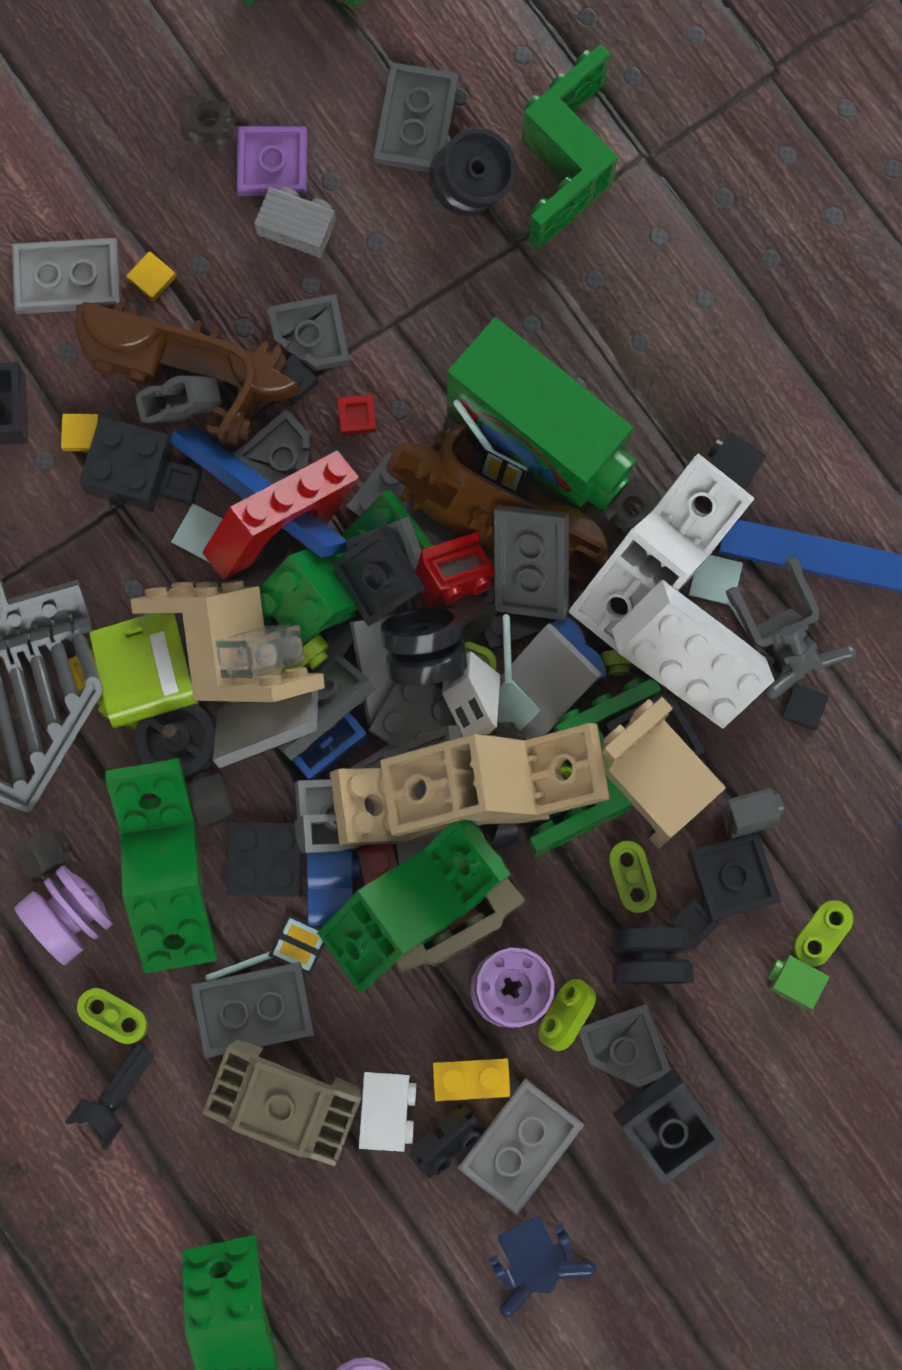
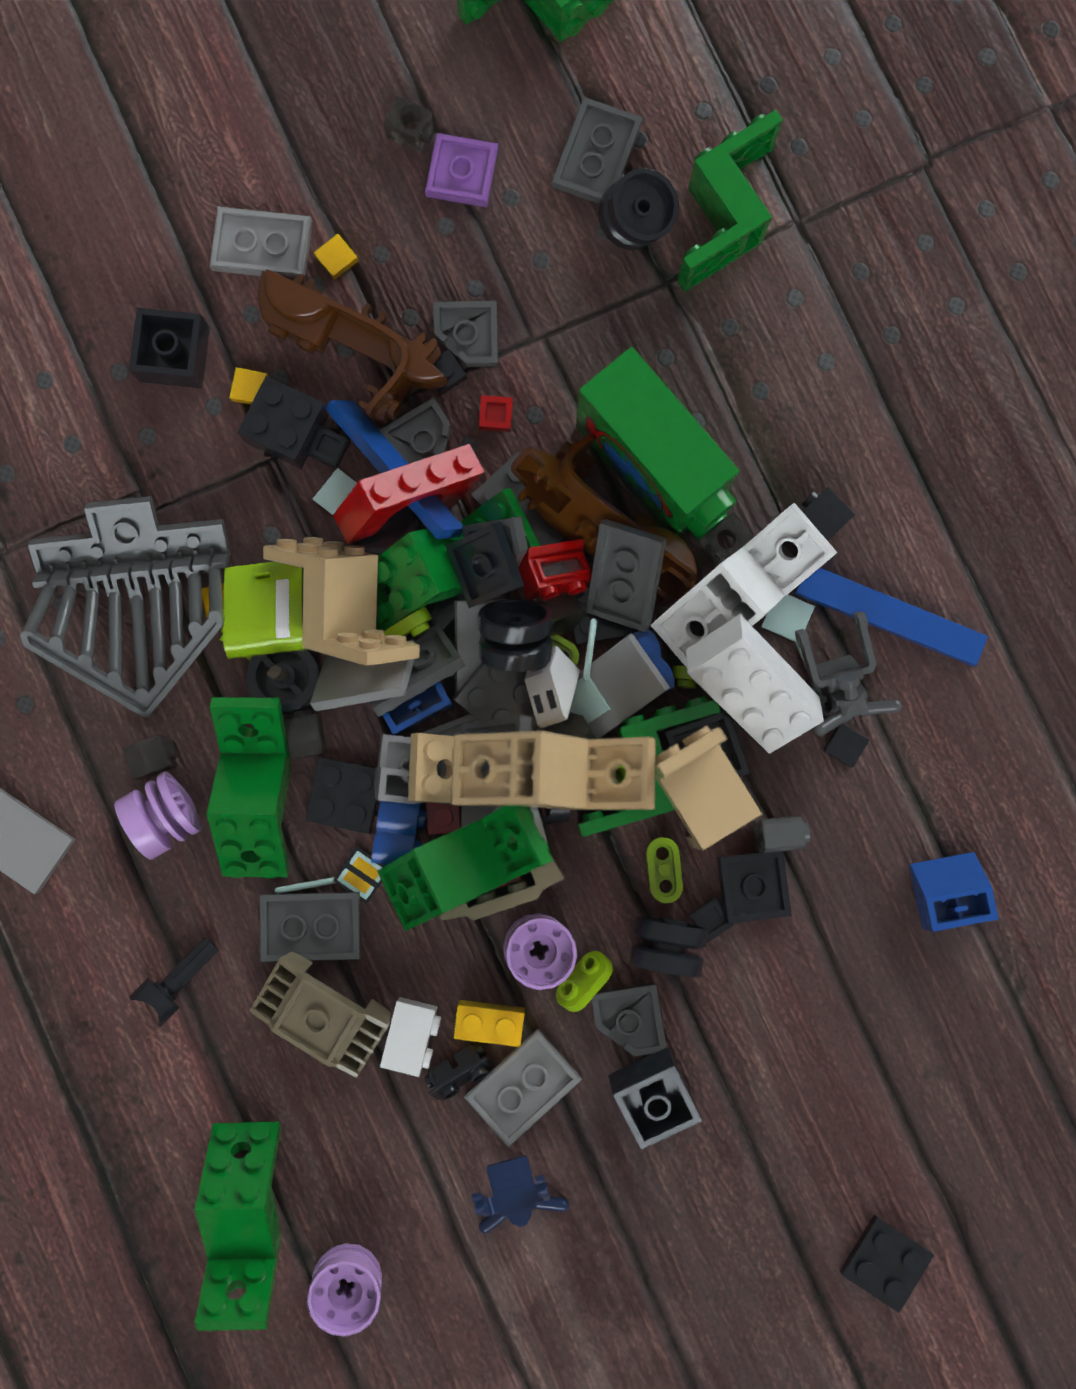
camera: 15 degrees right, 5 degrees up
(113, 1016) = (188, 910): lime plate -> none
(178, 399) = (338, 372): dark grey brick -> none
(260, 651) = (366, 615): clear brick -> none
(295, 221) = (472, 228): light grey brick -> none
(495, 465) = (610, 480): piece -> none
(797, 982) = (792, 989): bright green brick -> none
(823, 932) = (823, 948): lime plate -> none

